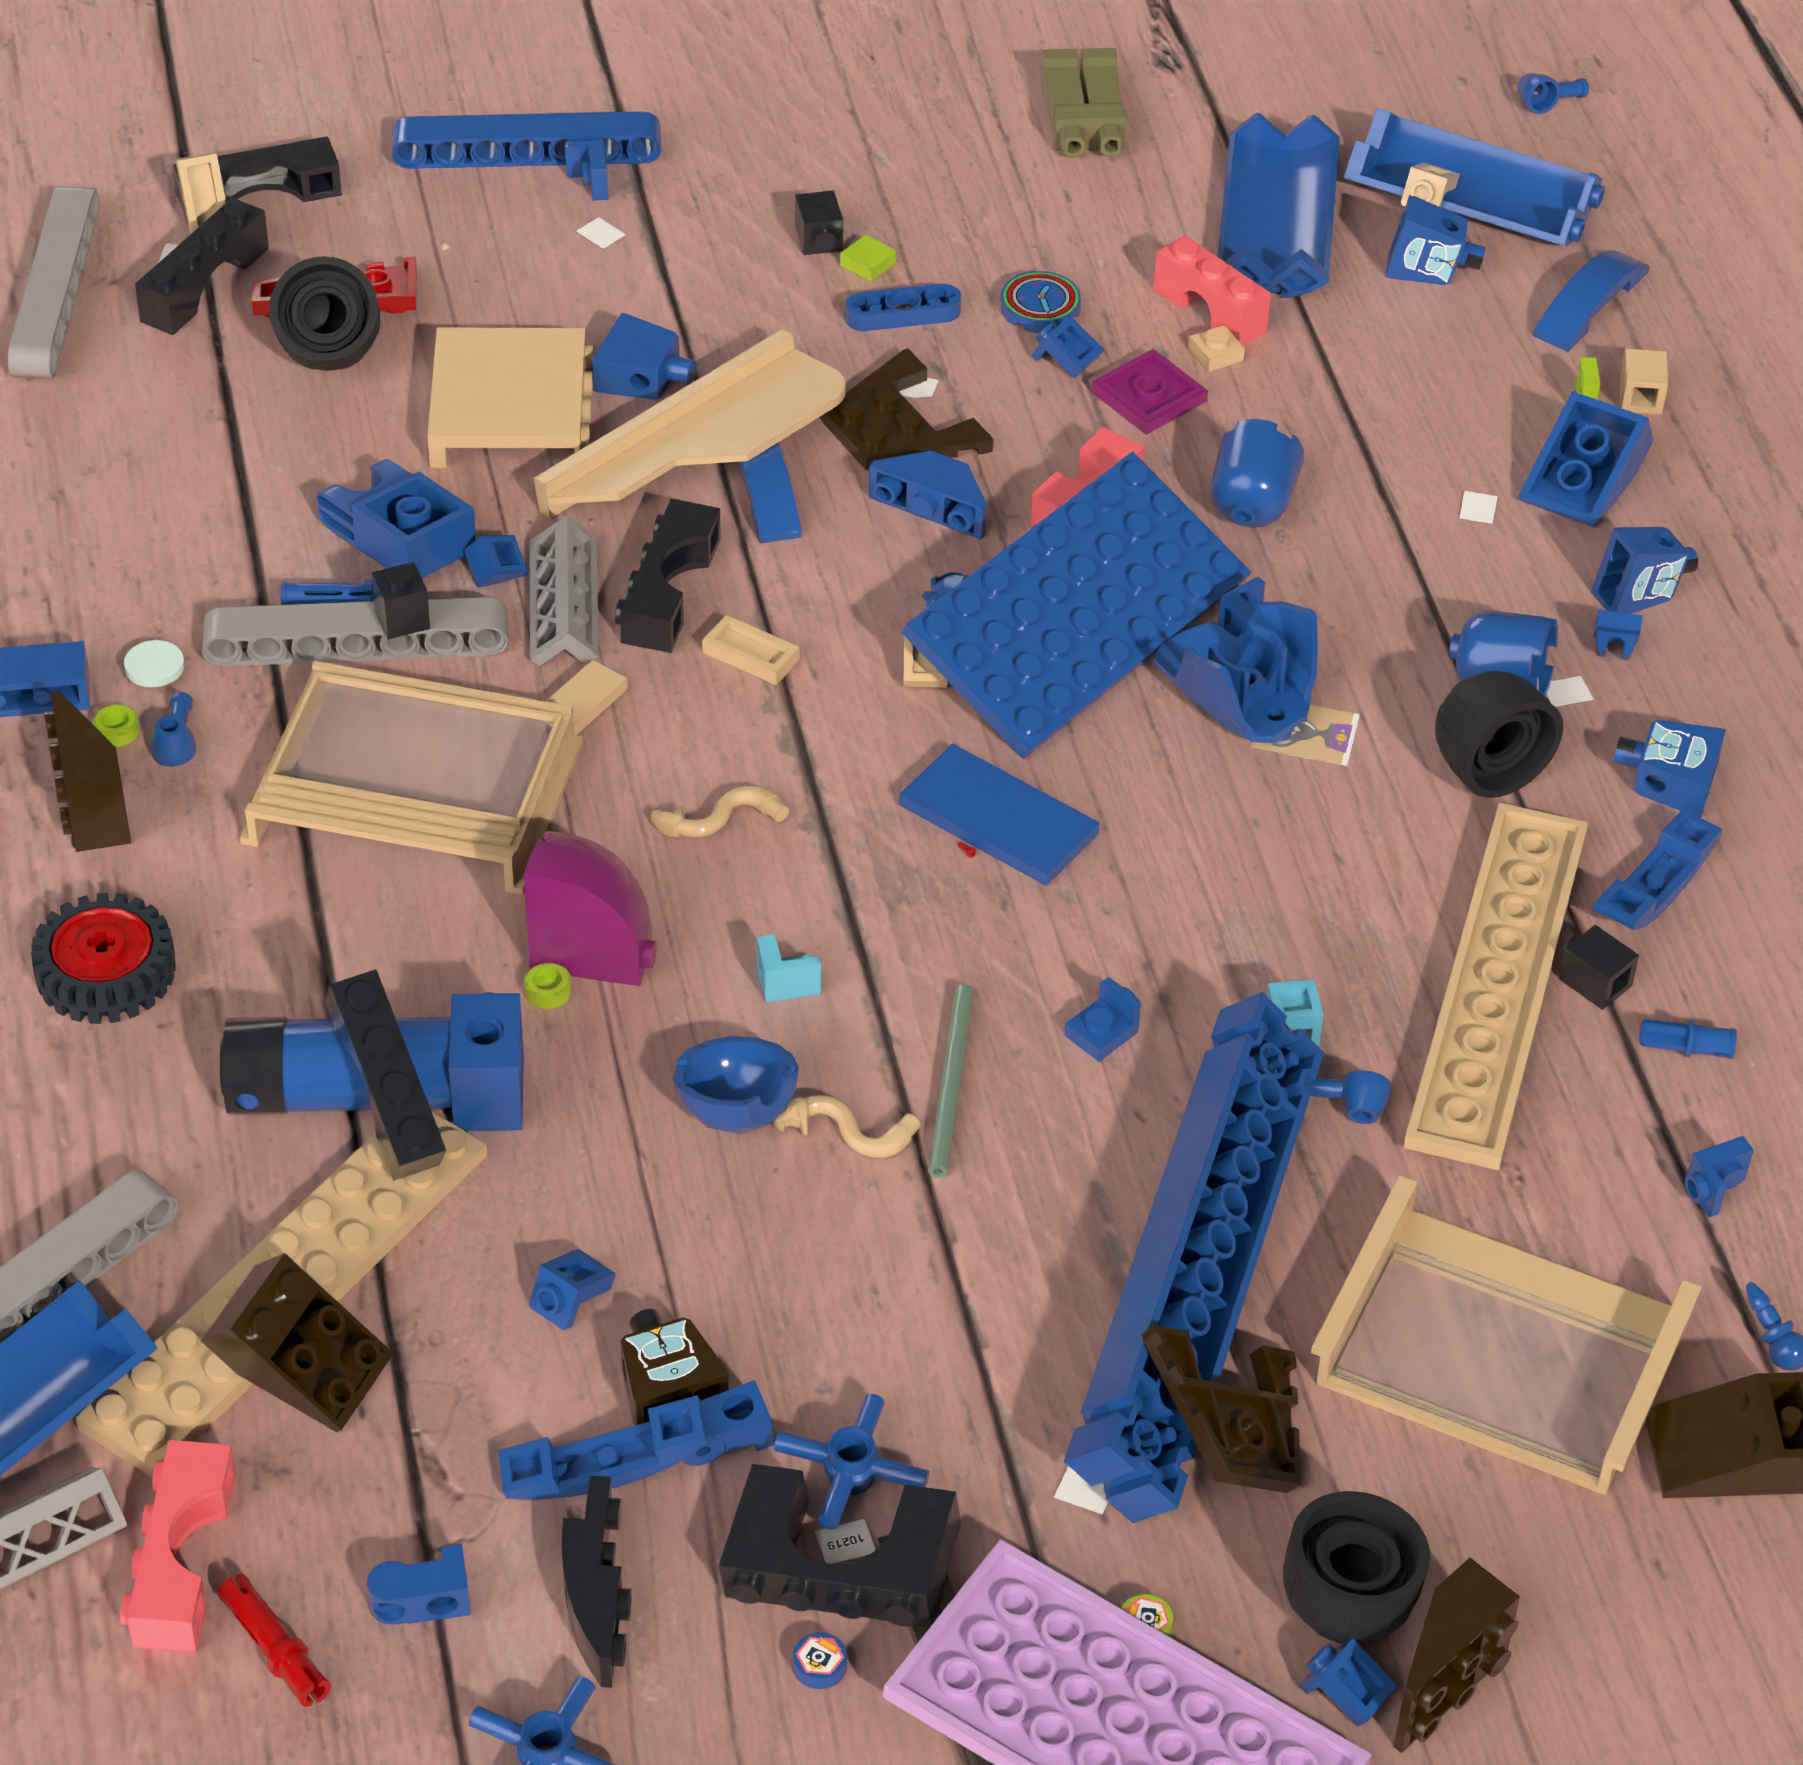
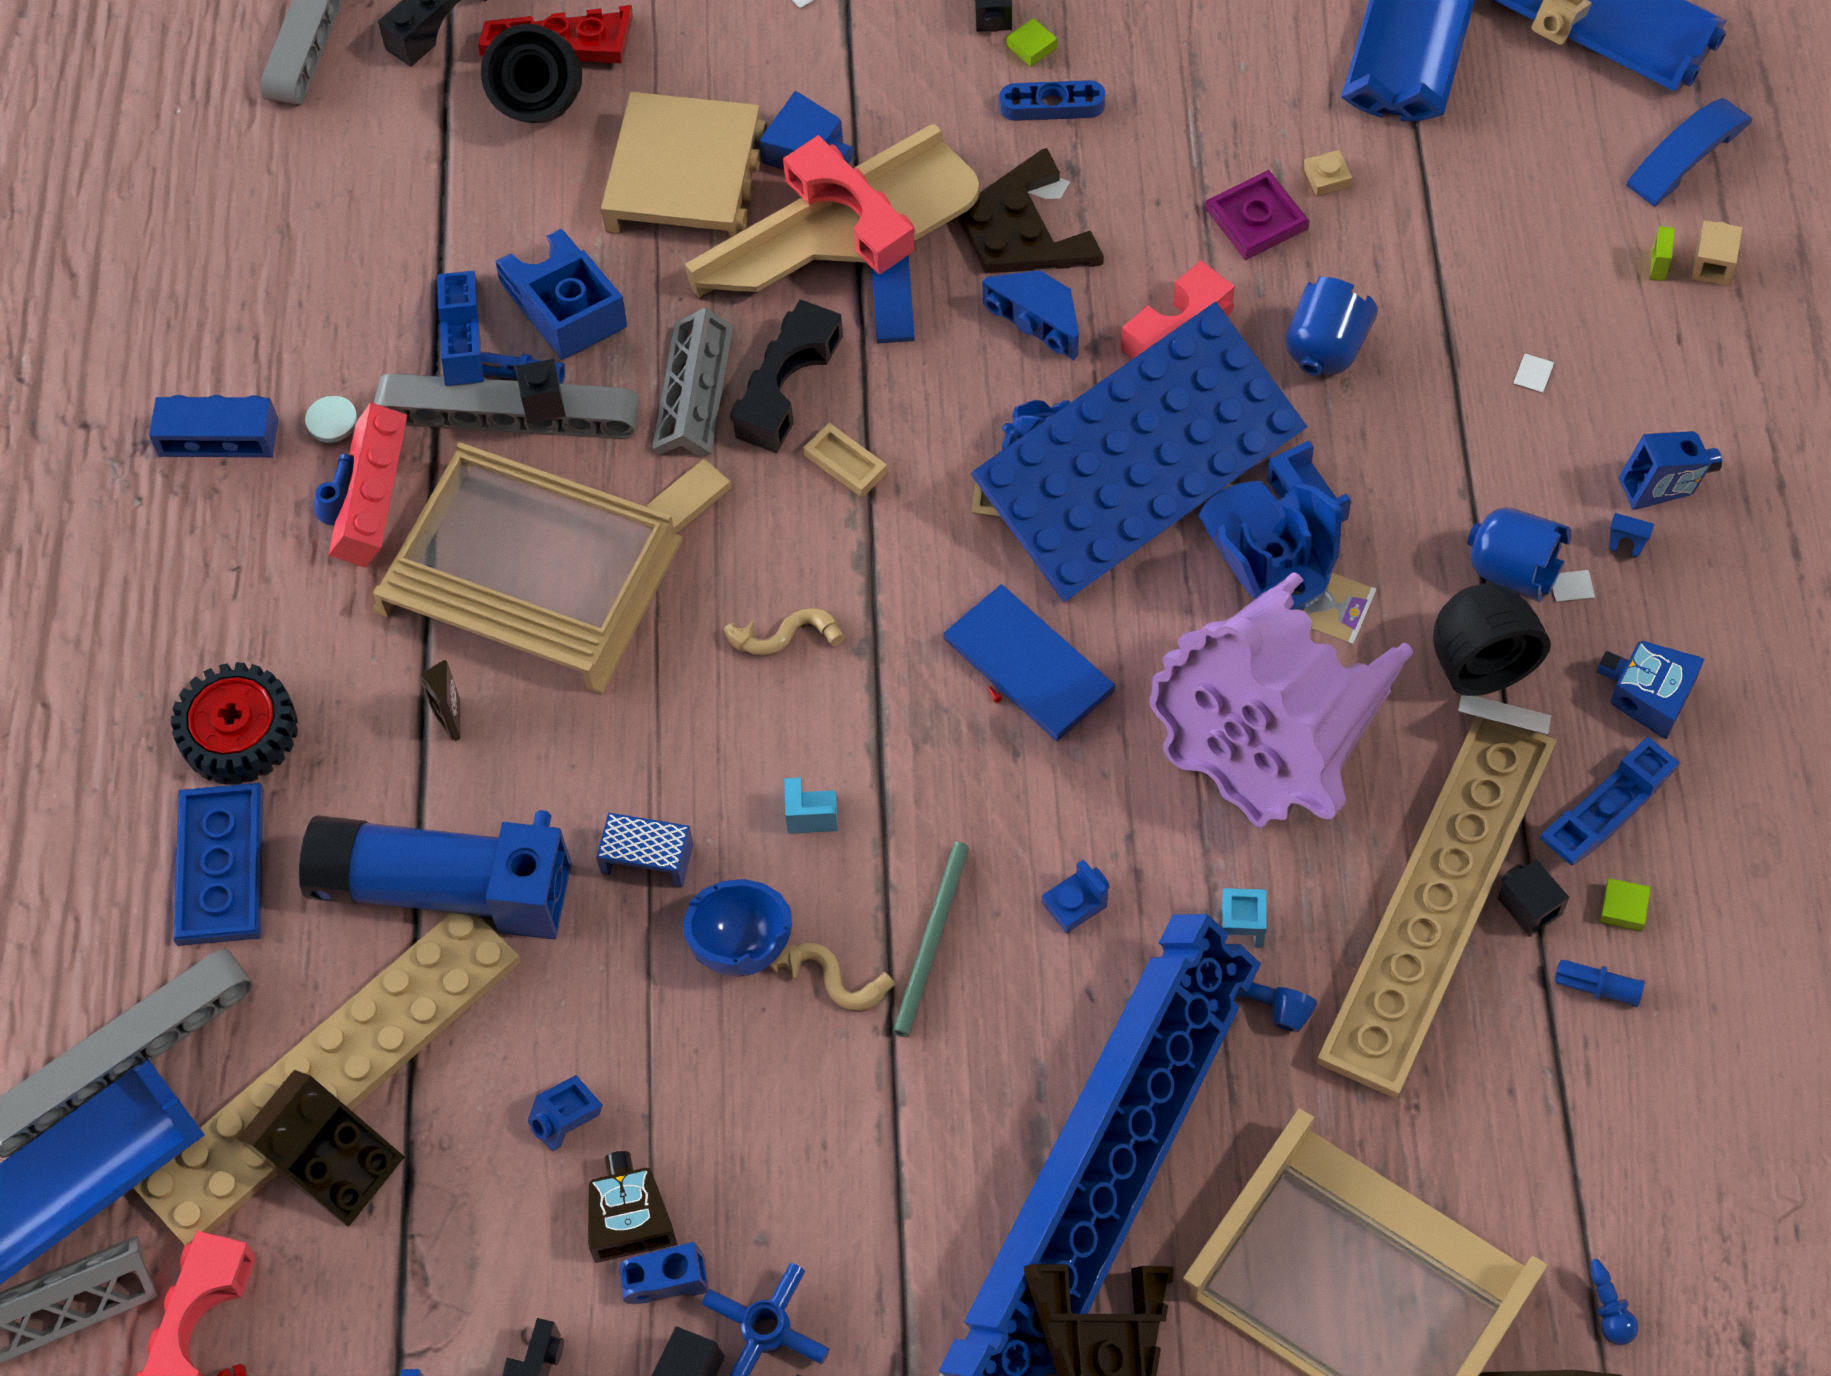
camera: 15 degrees right, 15 degrees up
(89, 779) = (245, 548): dark brown slope -> none
(111, 1098) = (219, 864): none -> blue tile
(117, 724) = (289, 479): lime tile -> none
(217, 745) = (364, 514): none -> coral arch
(290, 565) = (459, 328): none -> blue slope
(347, 902) = (443, 697): none -> dark brown slope
(397, 1099) = (429, 900): black arch -> none
(495, 559) = (640, 341): blue slope -> none
(547, 986) = (603, 795): lime tile -> none
(586, 911) = (643, 730): magenta brick -> none
(609, 1017) = (645, 845): none -> blue panel
(626, 1455) = (556, 1292): blue slope -> none
(675, 378) = (822, 174): none -> coral arch
(1039, 299) = (1177, 105): tile -> none
(1068, 346) = (1191, 161): blue bracket -> none
(1190, 272) = (1318, 92): coral arch -> none
(1276, 800) = (1269, 707): none -> lavender piece
(1430, 245) = (1547, 82): blue torso -> none
(1527, 803) = (1505, 713): none -> white sticker
(1587, 459) = (1642, 339): blue slope -> none
(1696, 967) = (1625, 904): none -> lime tile
(1717, 1170) = (1597, 1129): blue bracket -> none

